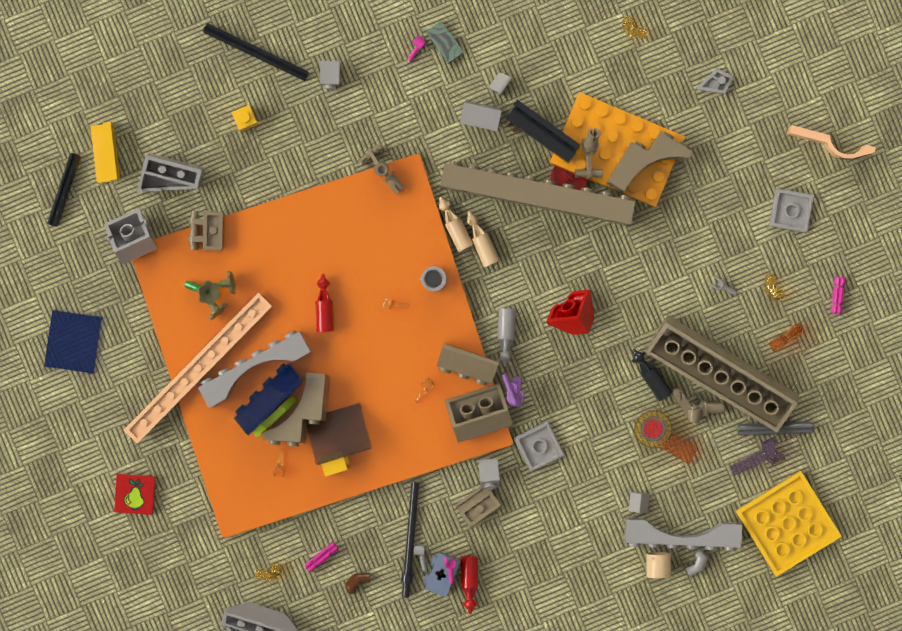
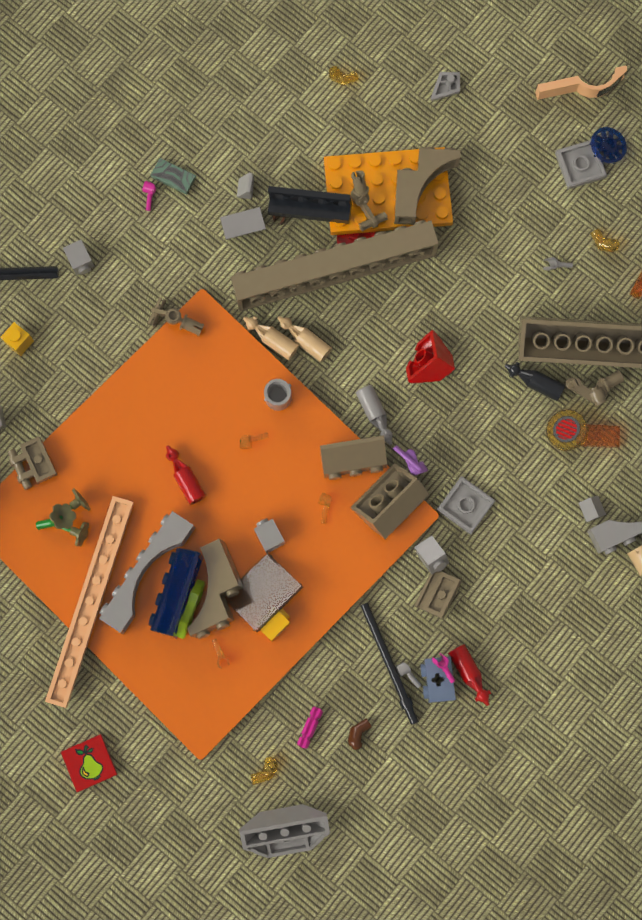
camera: 25 degrees left, 10 degrees down
(367, 390) = (269, 535): none -> light grey brick
(822, 207) = (608, 145): none -> clear blue wheel

